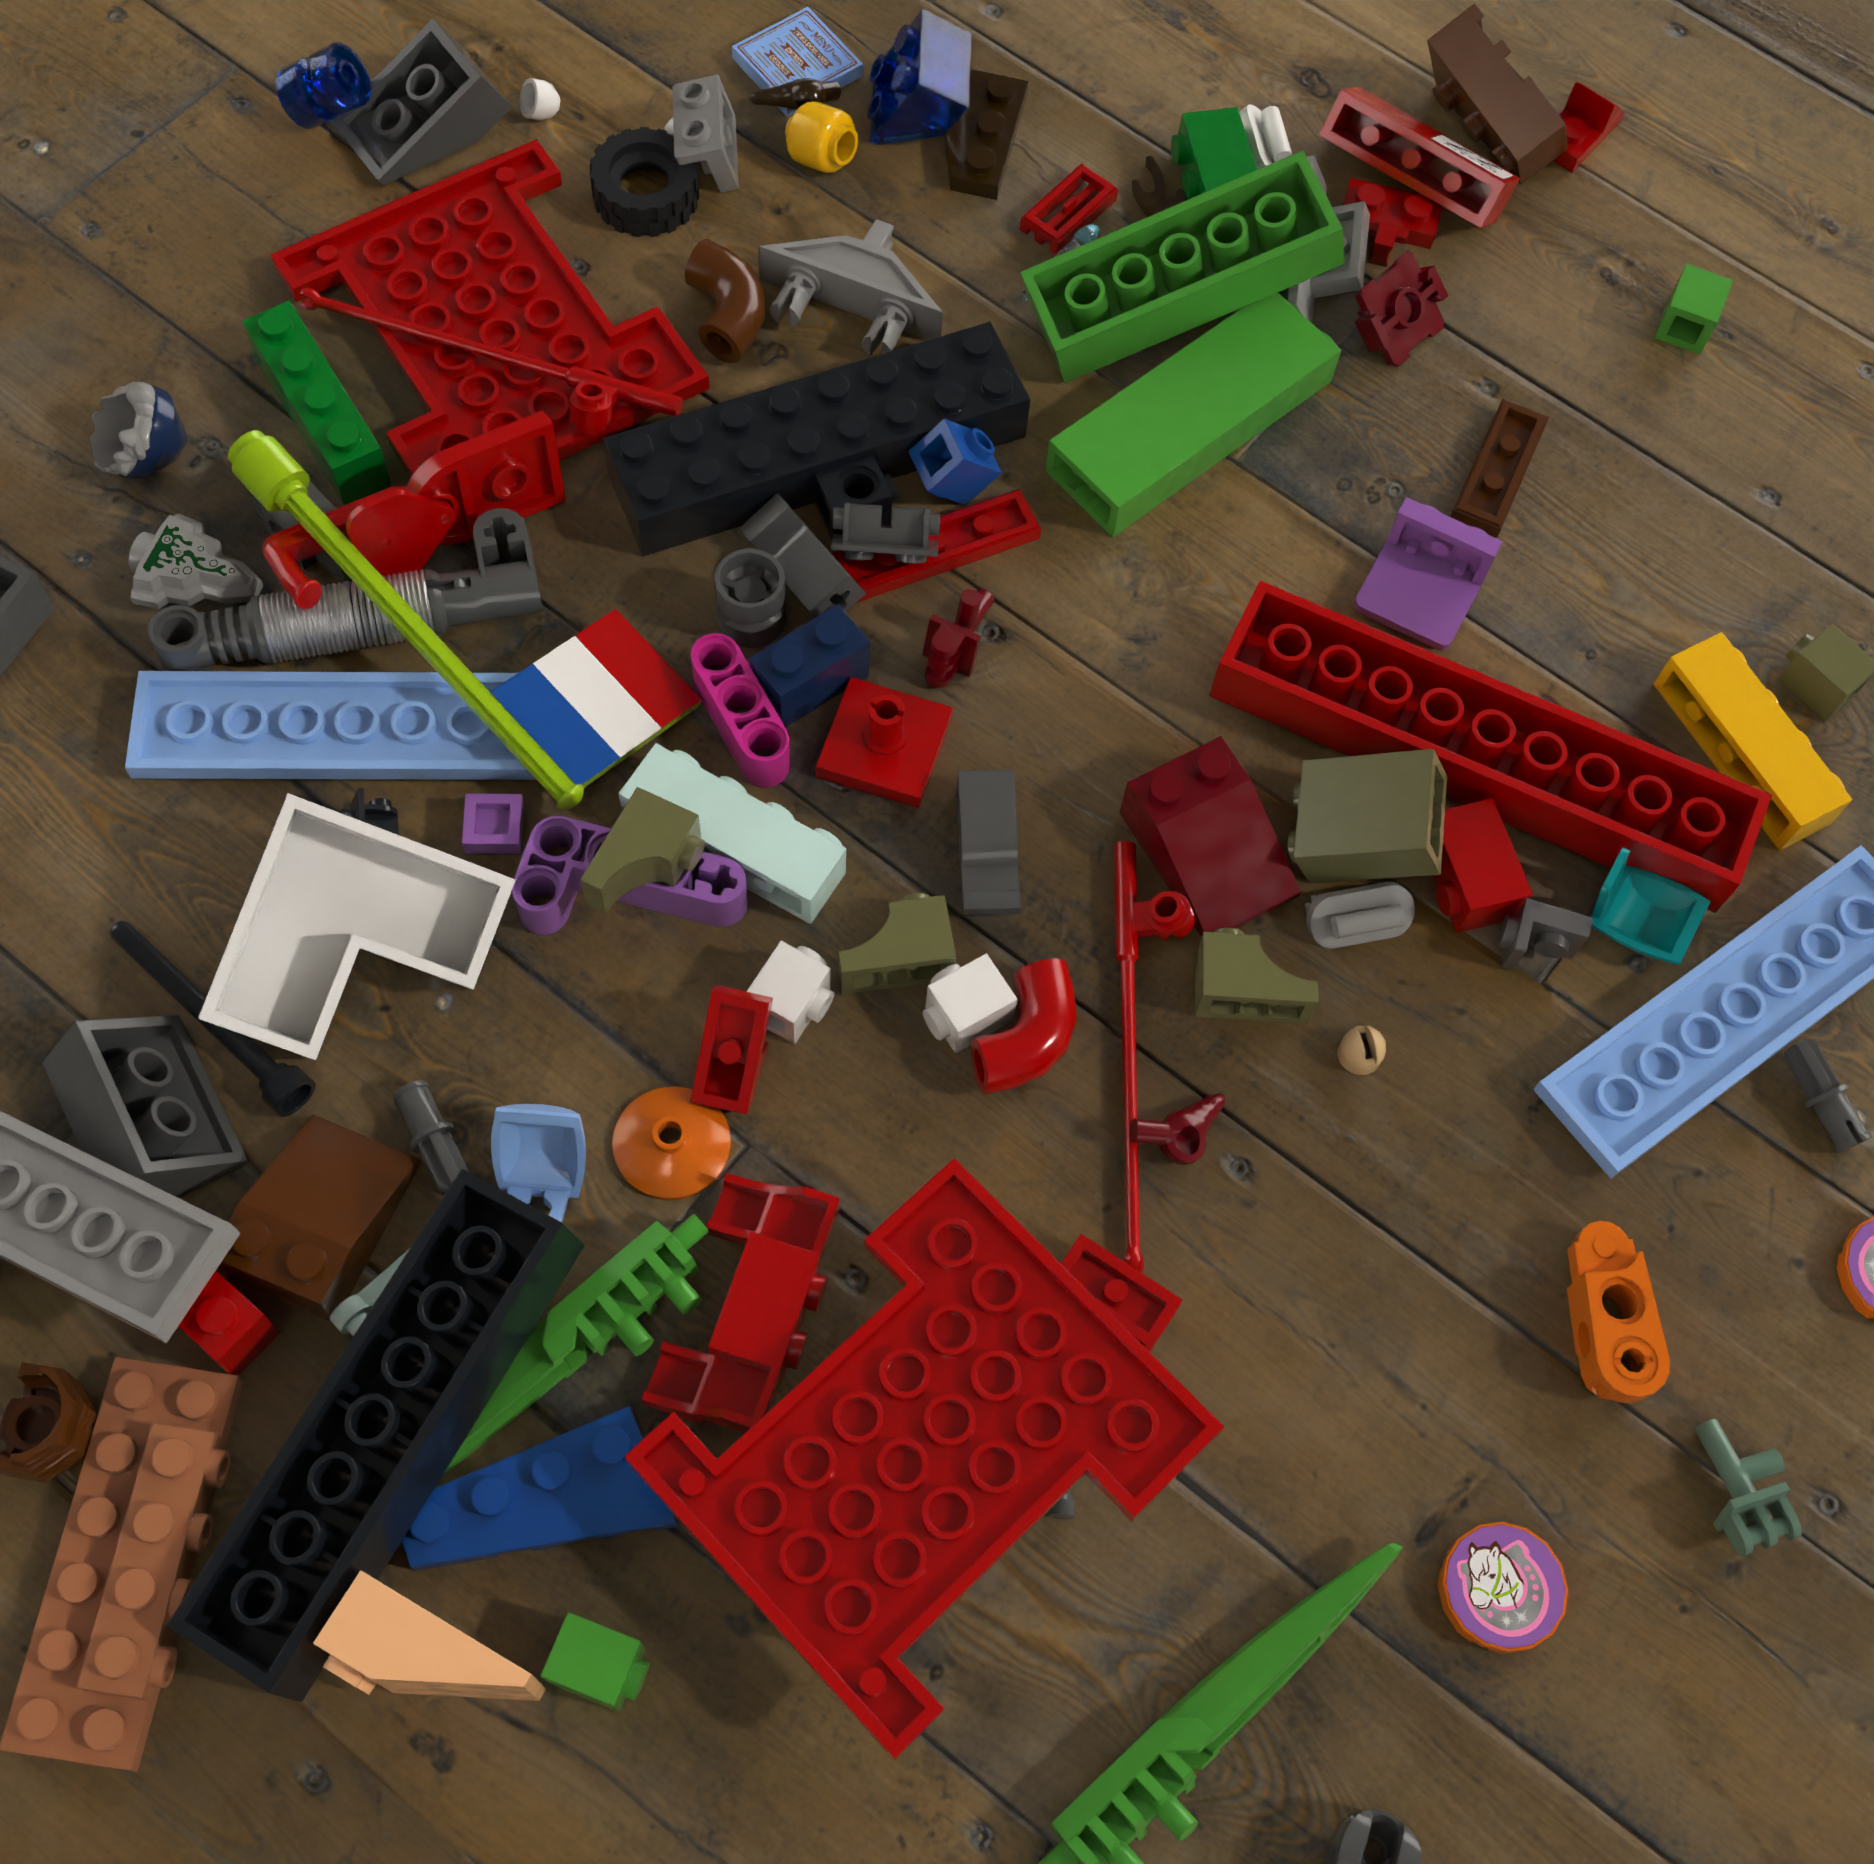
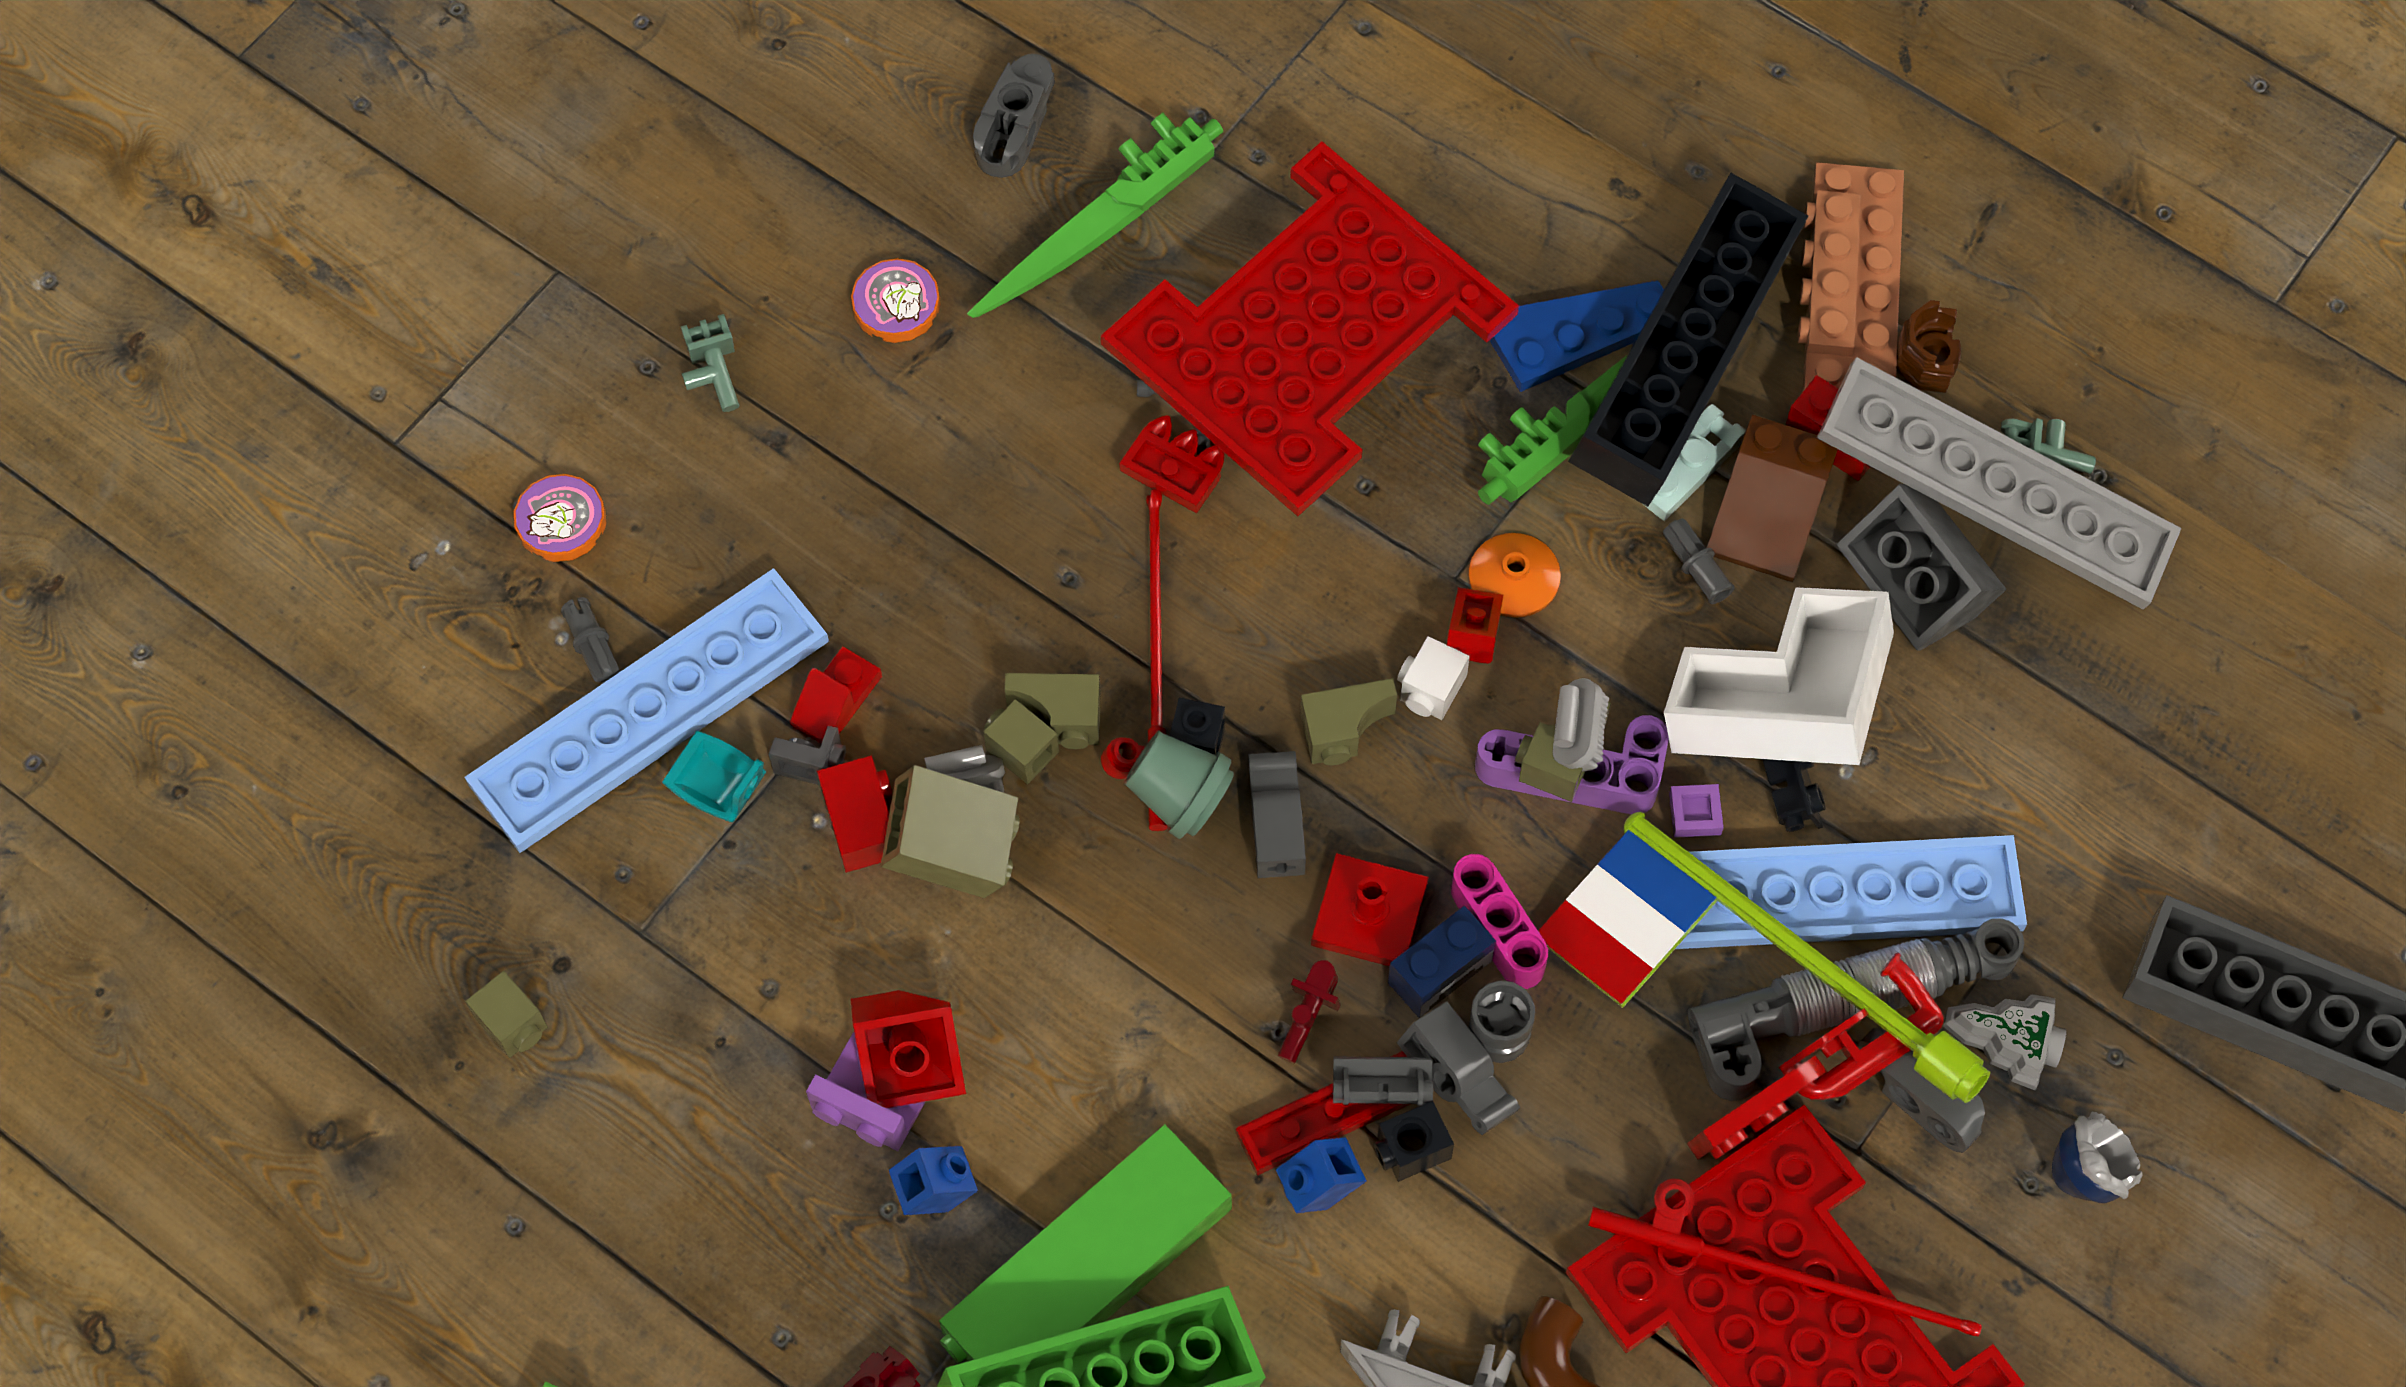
camera: 175 degrees left, 0 degrees up
(283, 1086) = (1918, 665): black piece -> none
(317, 403) = (1938, 1211): green brick -> none
(408, 1650) = (1633, 213): light nougat slope -> none
(539, 1154) = (1612, 547): light blue piece -> none
(596, 1663) = (1522, 227): bright green brick -> none
(622, 846) = (1580, 725): none -> light grey piece
(730, 458) = (1452, 1203): black brick -> none
(764, 1309) = (1433, 427): red bracket -> none
(778, 854) = (1493, 810): light aqua brick -> none
(968, 1002) = (1286, 675): white brick -> none
(1037, 1038) = (1232, 651): red cylinder -> none
(1082, 931) = (1199, 724): none -> black brick
(1103, 853) = (1179, 782): none -> sand green piece
(1182, 1131) = (1113, 593): dark red animal -> none
(1210, 837) = (1088, 829): dark red slope -> none
(1296, 937) = (1020, 740): none -> olive brick
(1352, 1051) = (955, 668): tan hinge -> none
(1355, 480) = (933, 1180): none -> blue brick
(1410, 598) = (906, 1048): none -> red slope
(1499, 467) = (783, 1233): reddish brown tile -> none
(1514, 1022) = (835, 694): none -> red slope
(1536, 759) = (840, 912): red brick -> none
(1607, 1266) = (794, 499): orange piece -> none
(1752, 738) = (593, 943): yellow brick -> none

